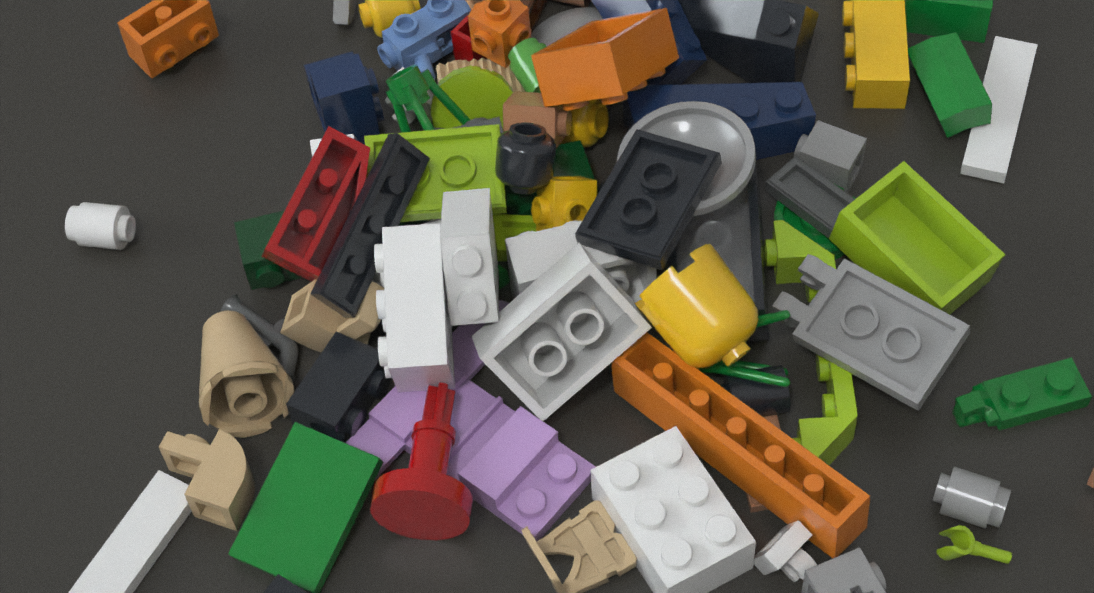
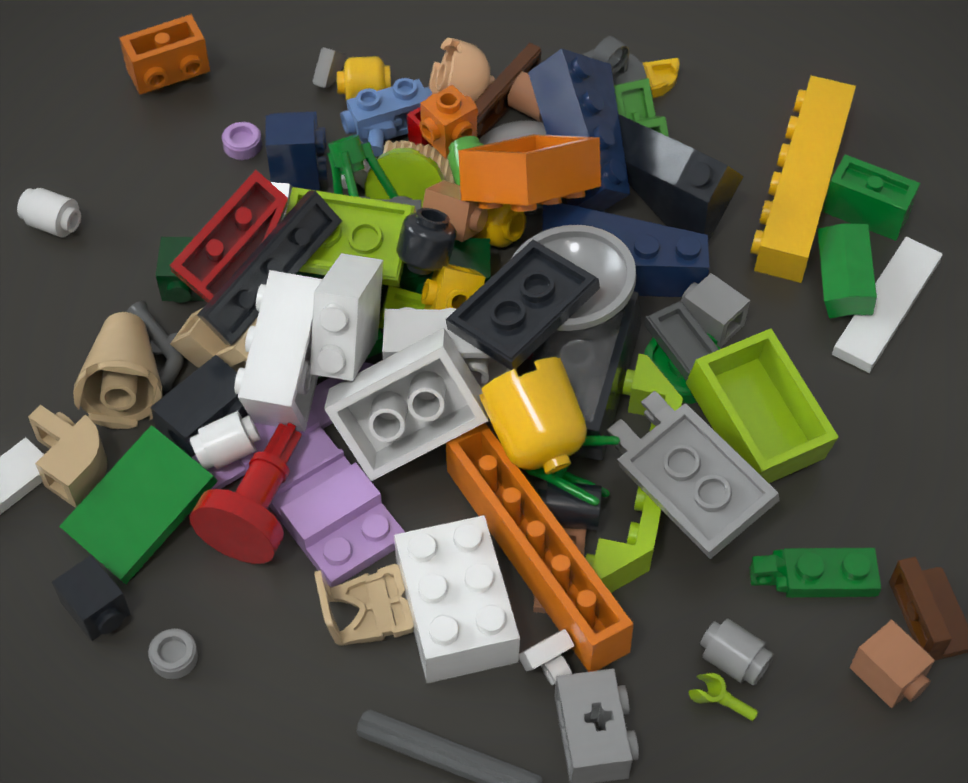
camera: 10 degrees right, 0 degrees up
(278, 101) = (242, 140): none -> lavender tile
(378, 418) = (225, 440): none -> white brick

